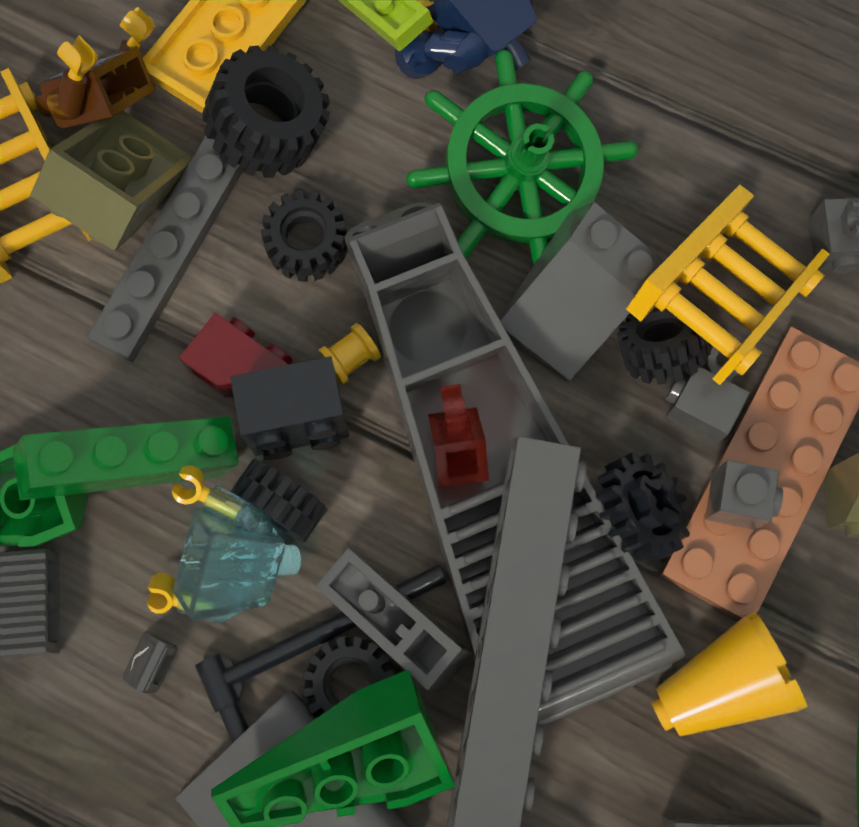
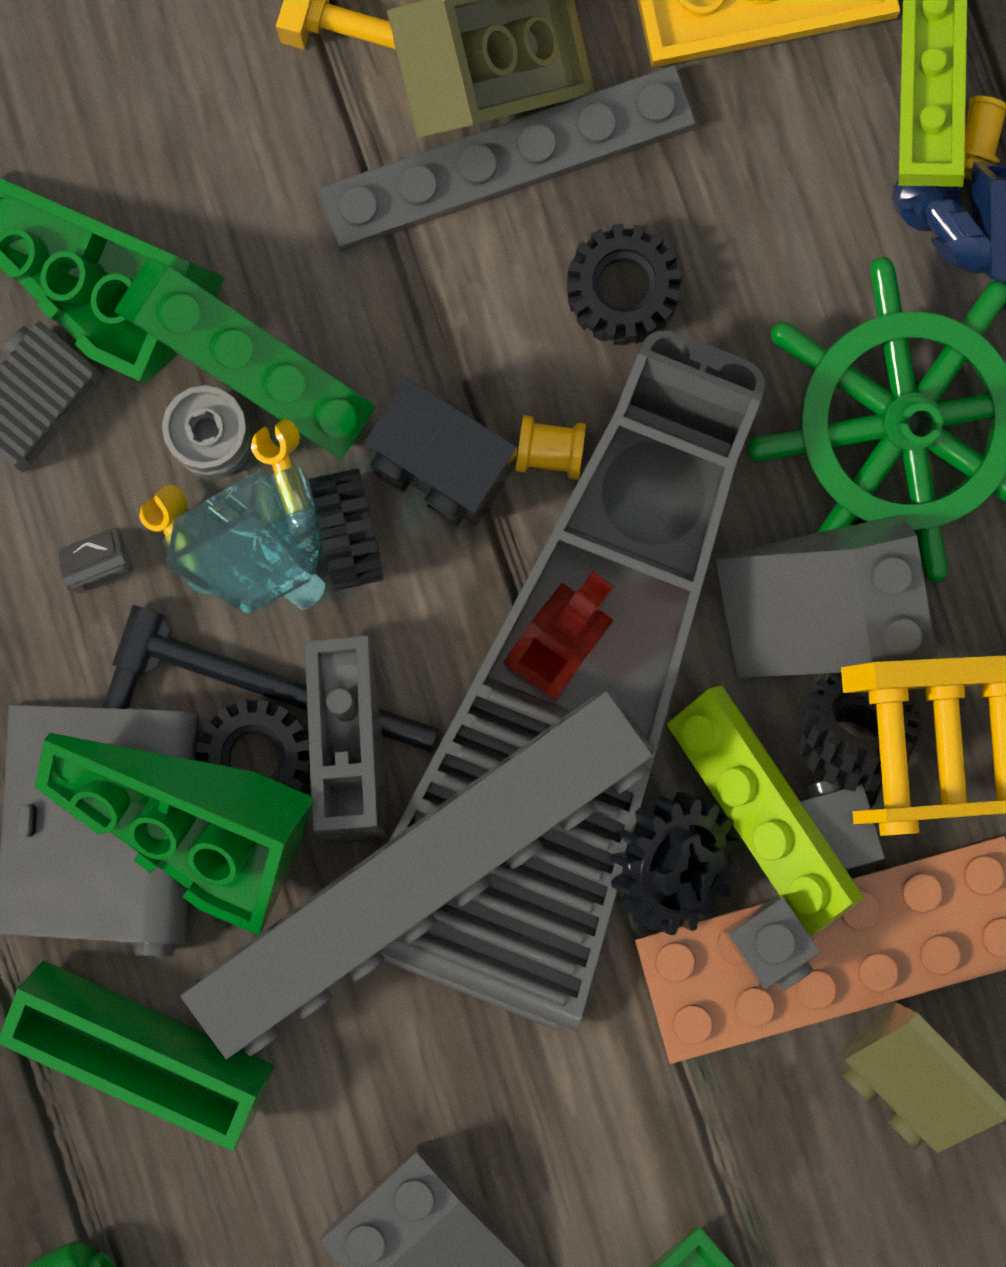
camera: 50 degrees right, 10 degrees up
(145, 523) = (207, 432): none -> light grey wheel
(226, 351) = (431, 347): dark red slope -> none
(279, 85) = (749, 123): black tyre -> none
(660, 430) = (765, 810): none -> lime plate
(729, 683) = (591, 1091): yellow cone -> none

